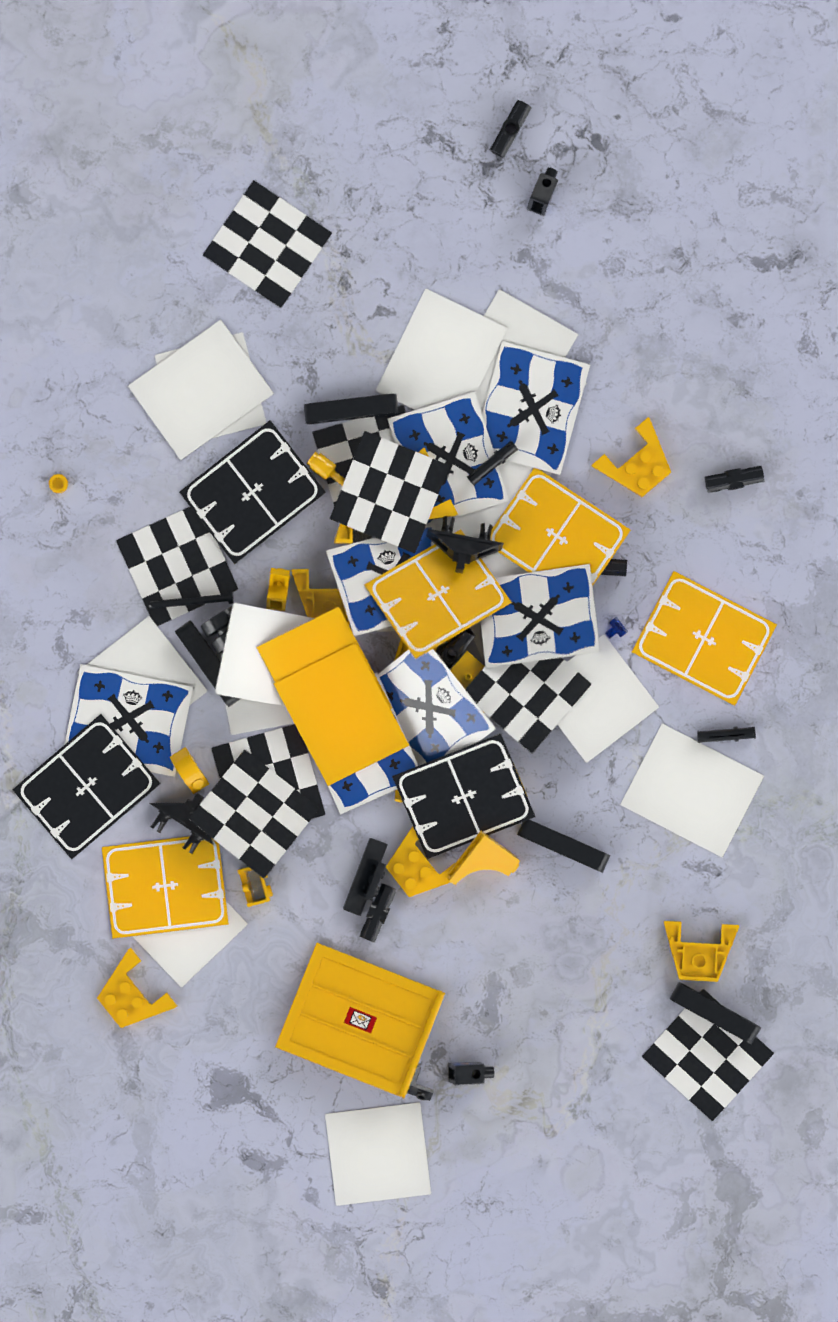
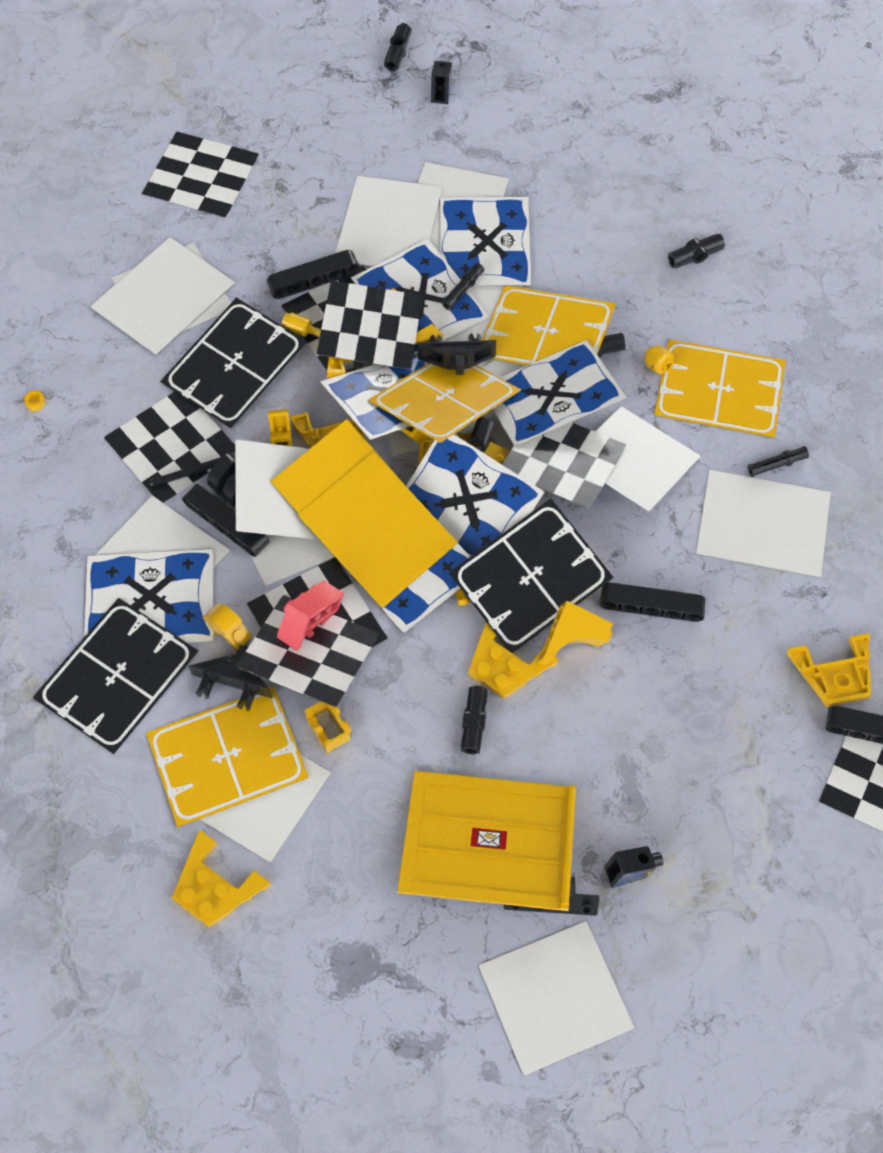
camera: 15 degrees left, 25 degrees down
(264, 780) = (307, 612): none -> coral wedge
(367, 877) = (451, 687): black bracket -> none
(617, 628) = (633, 393): clear blue tile -> none
(643, 469) = (607, 264): yellow wing -> none
(653, 598) = (658, 359): none -> yellow head

